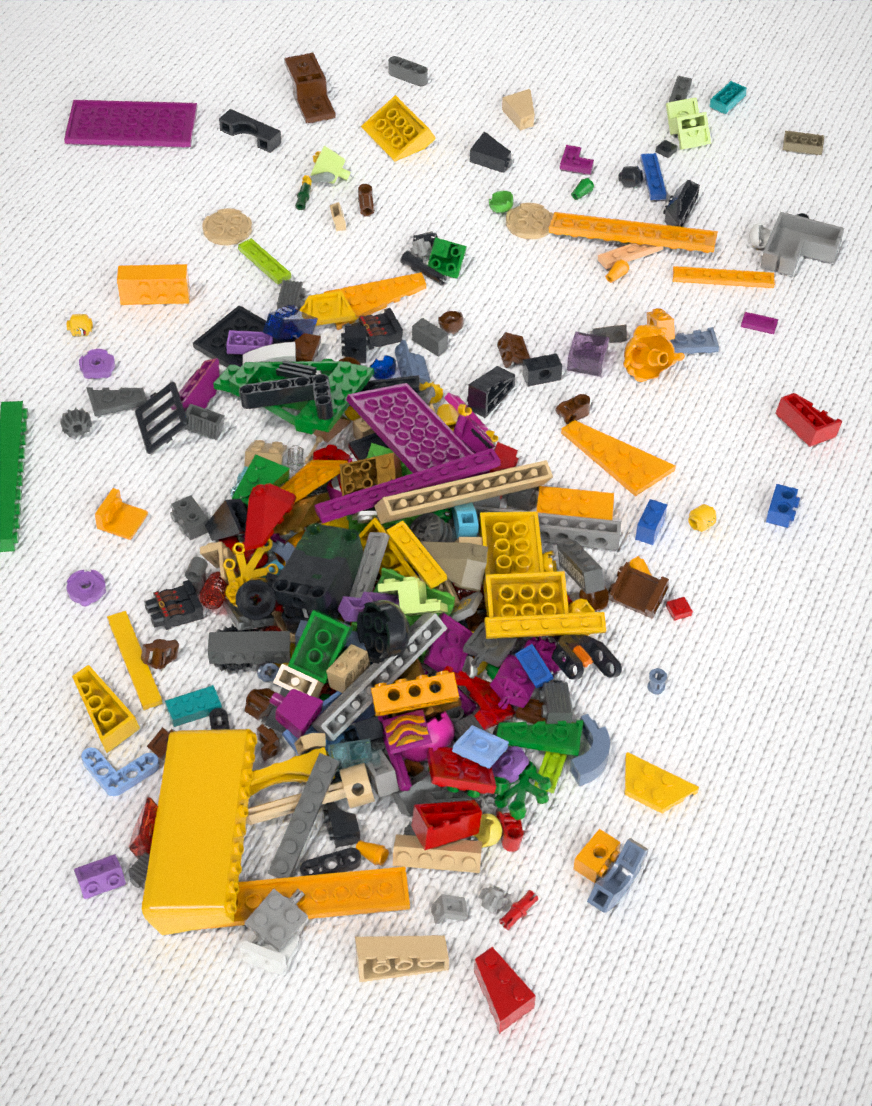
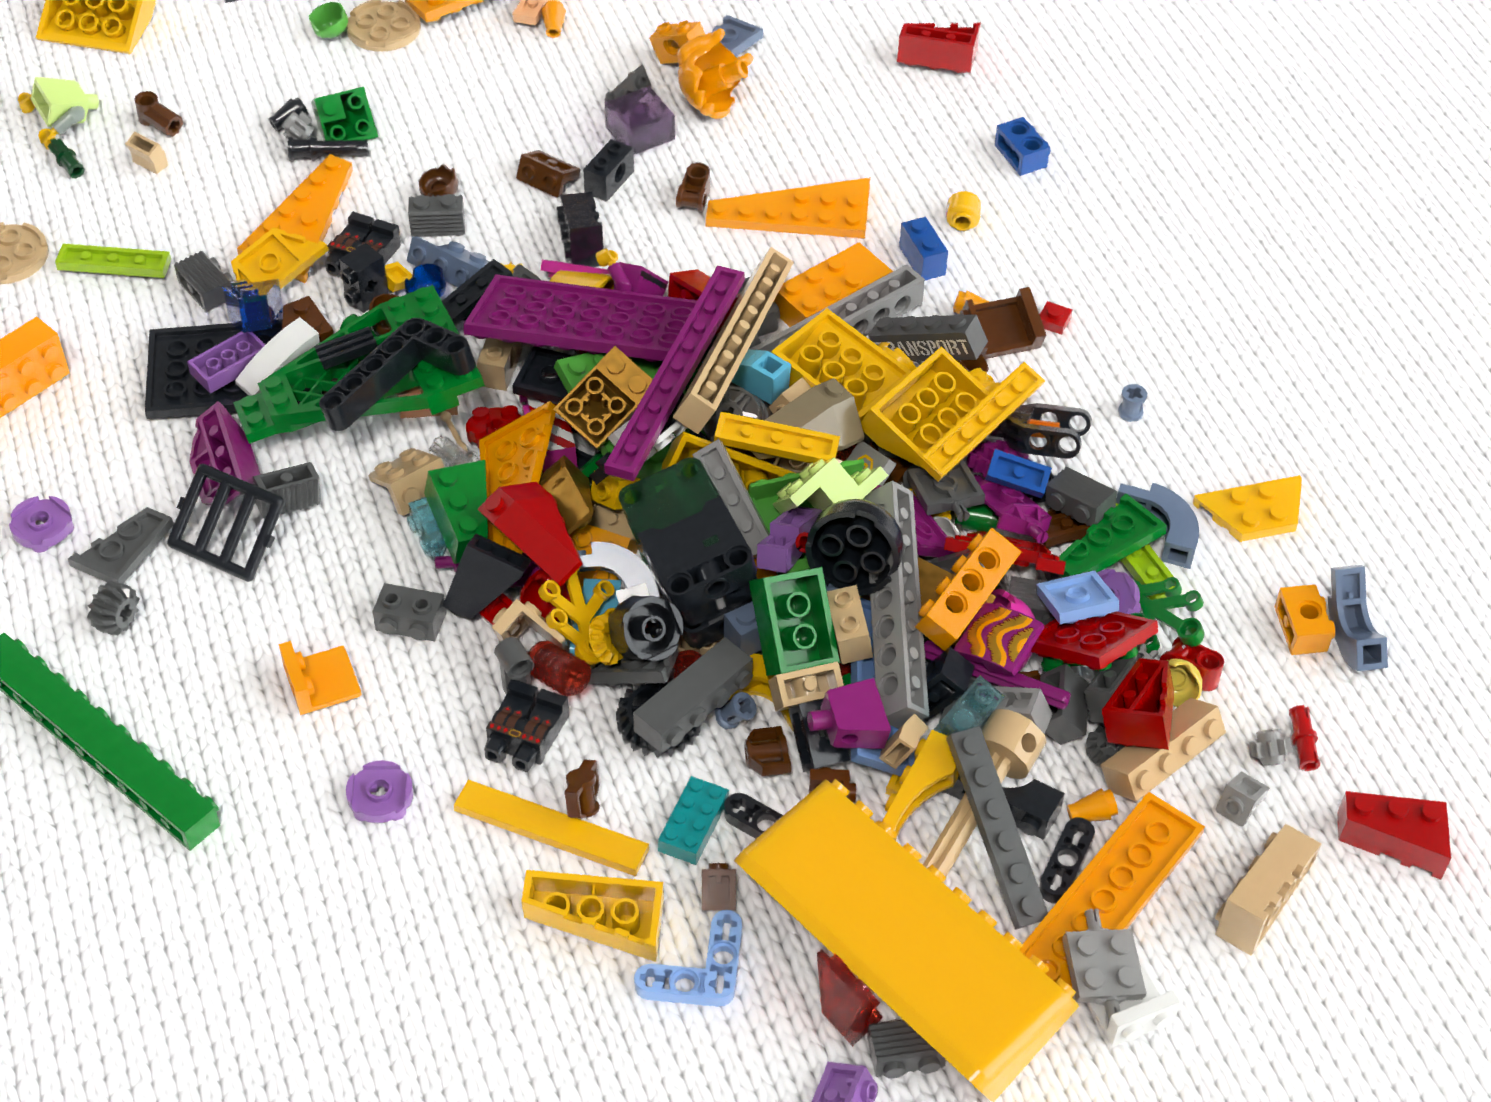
camera: 45 degrees left, 0 degrees up
(374, 352) = (396, 276): none -> yellow plate

